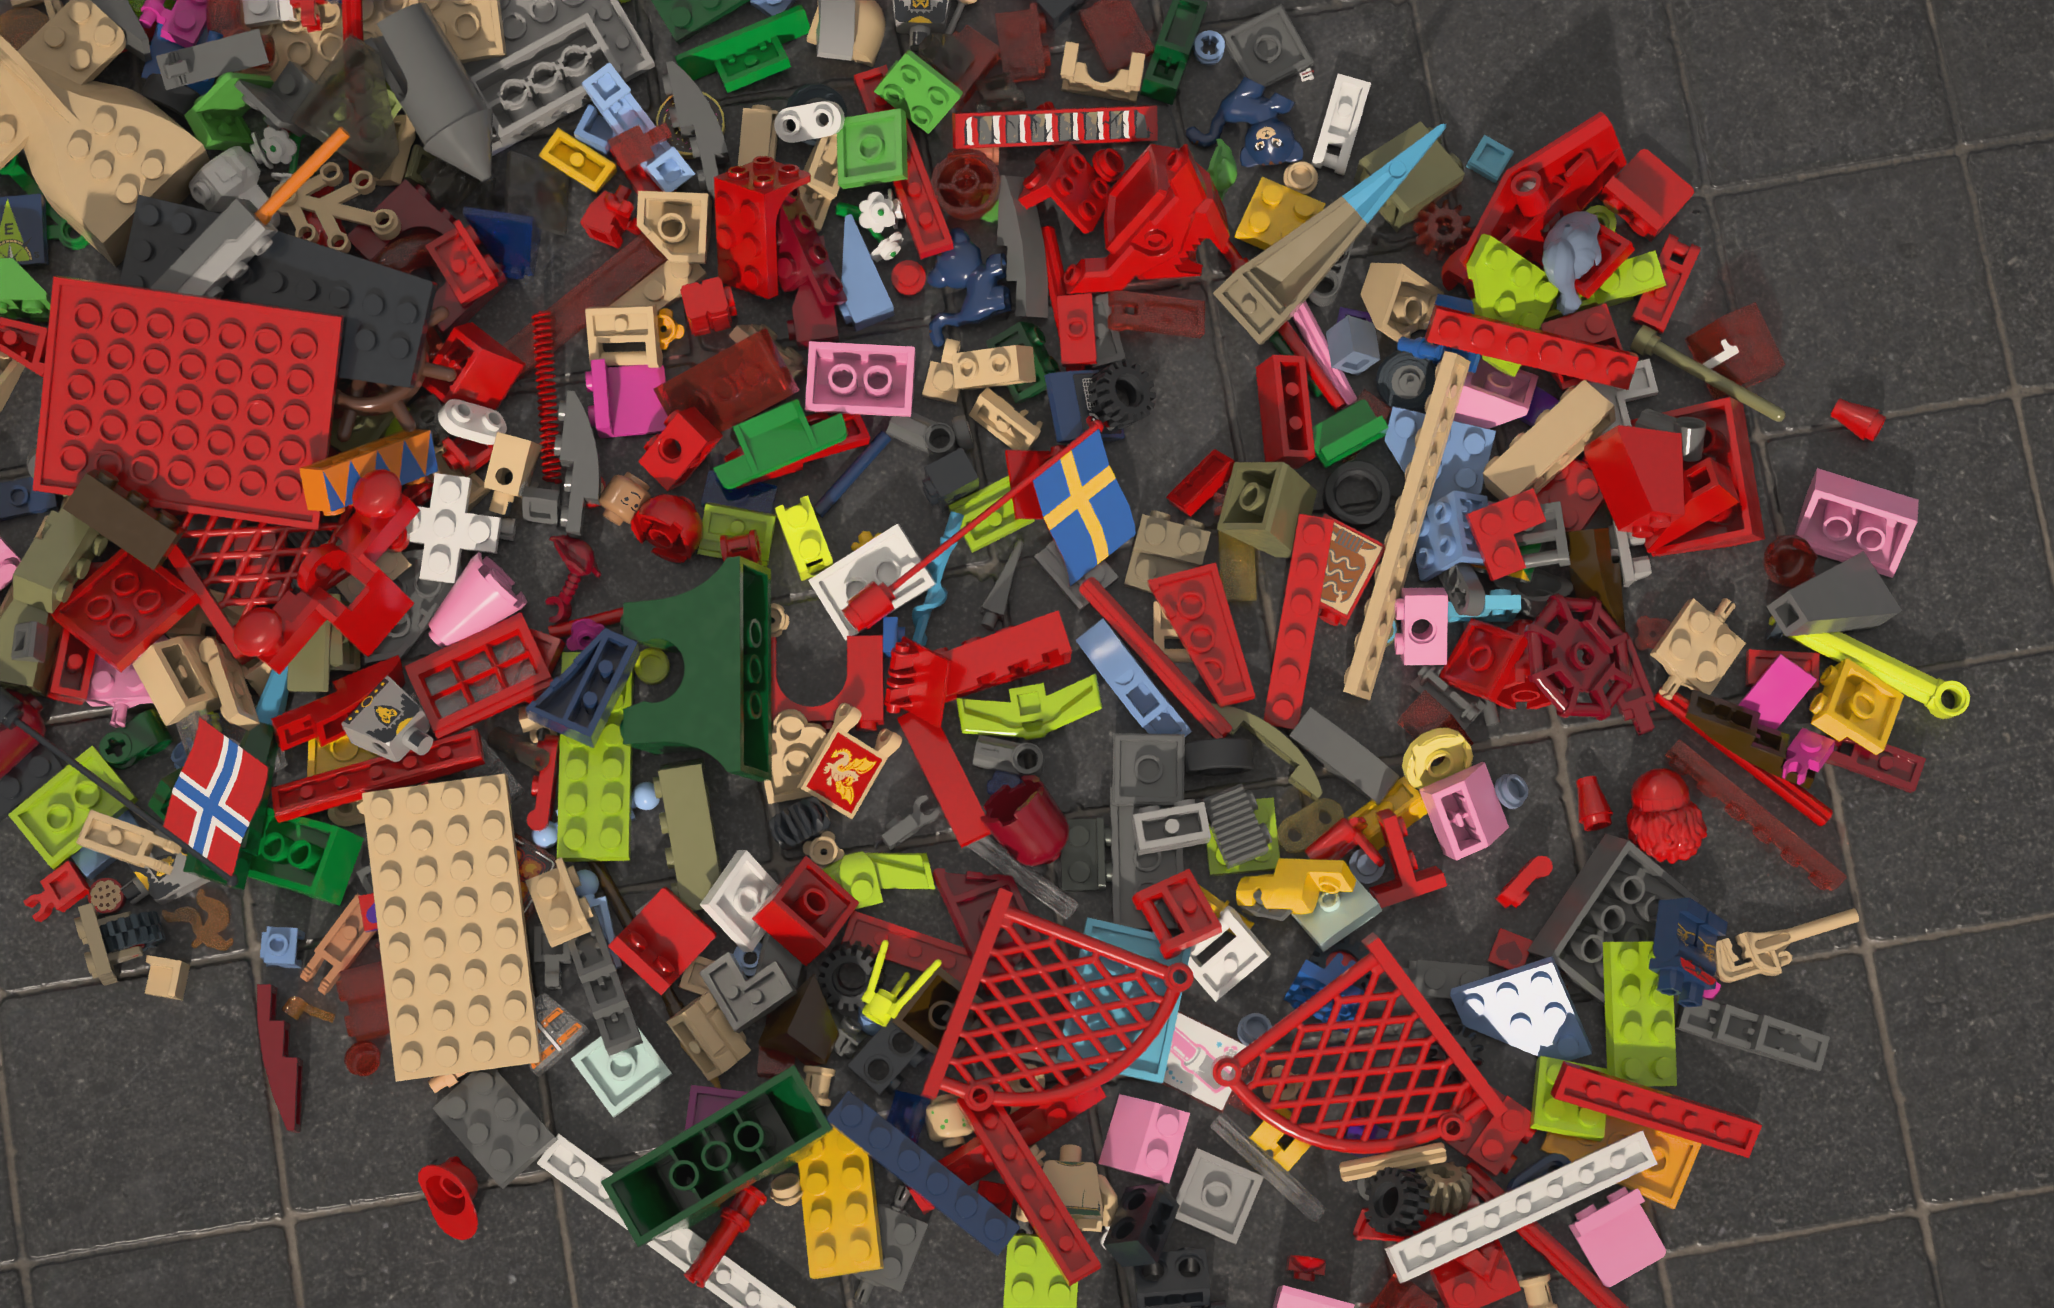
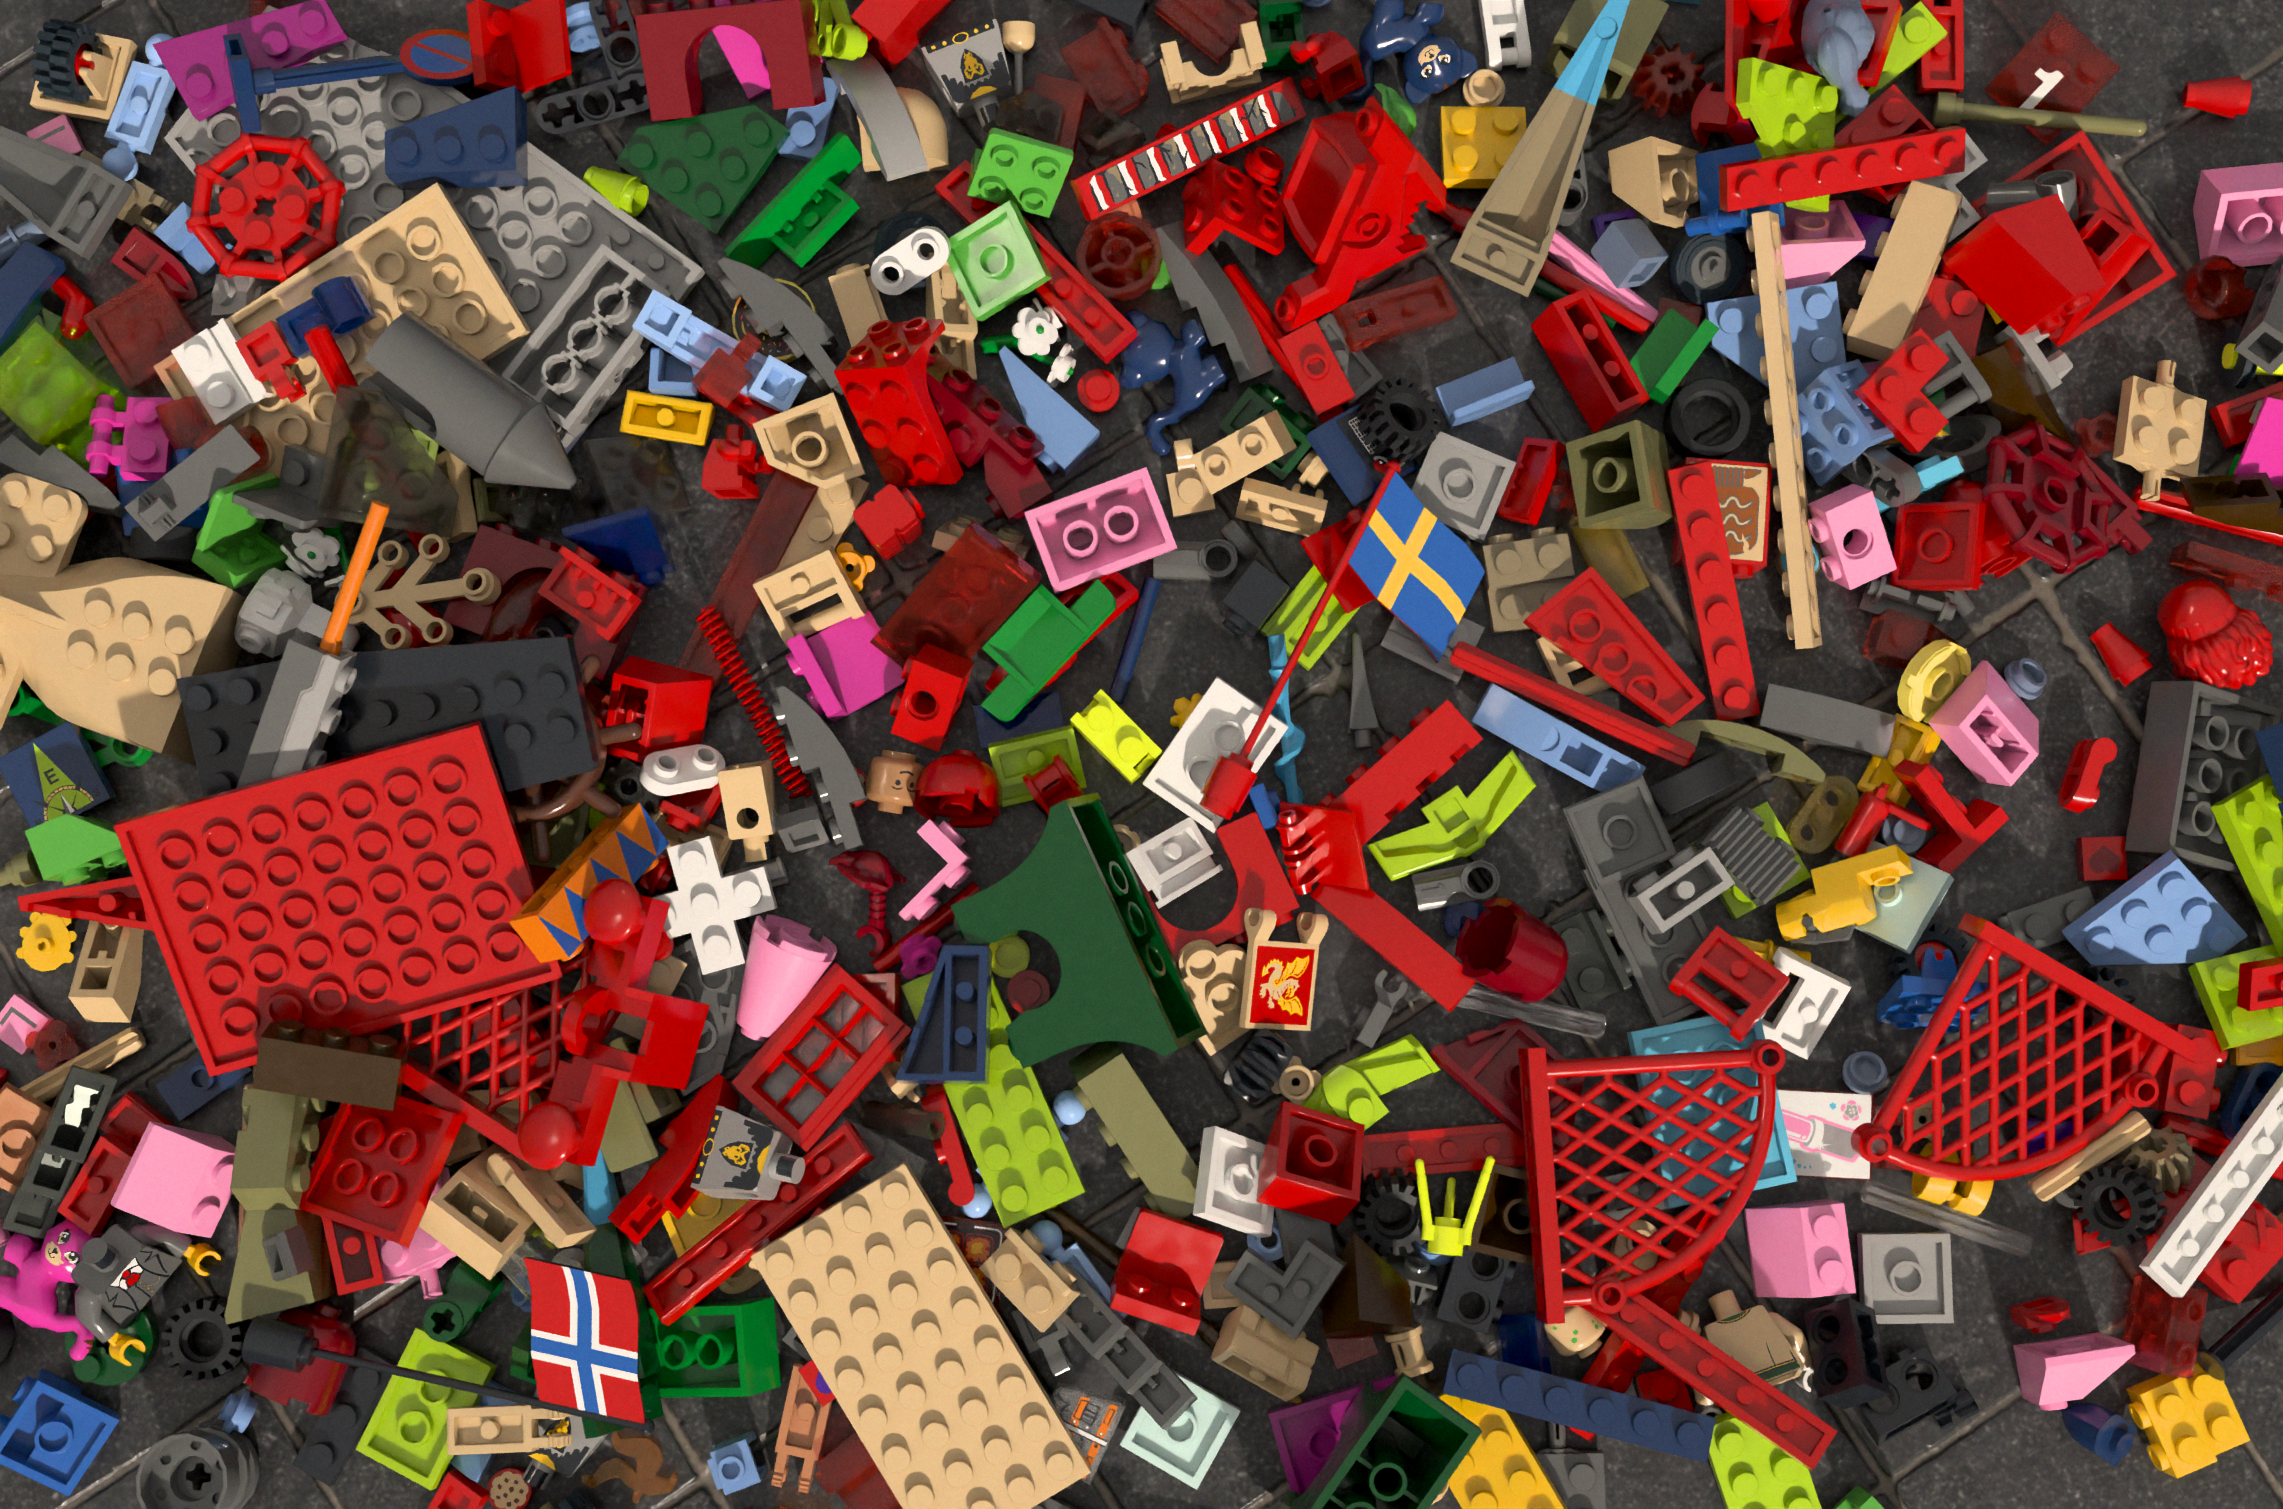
camera: 20 degrees left, 5 degrees up
(634, 584) = (947, 844): none -> bright pink bracket
(653, 692) = (1027, 990): none -> red plate
(805, 647) = (1174, 861): none -> white plate
(1040, 404) = (1312, 469): none -> tan plate
(1148, 464) = (1462, 485): none -> light grey plate
(1192, 111) = (1333, 63): none -> red piece
(1196, 402) = (1482, 393): none -> medium blue panel

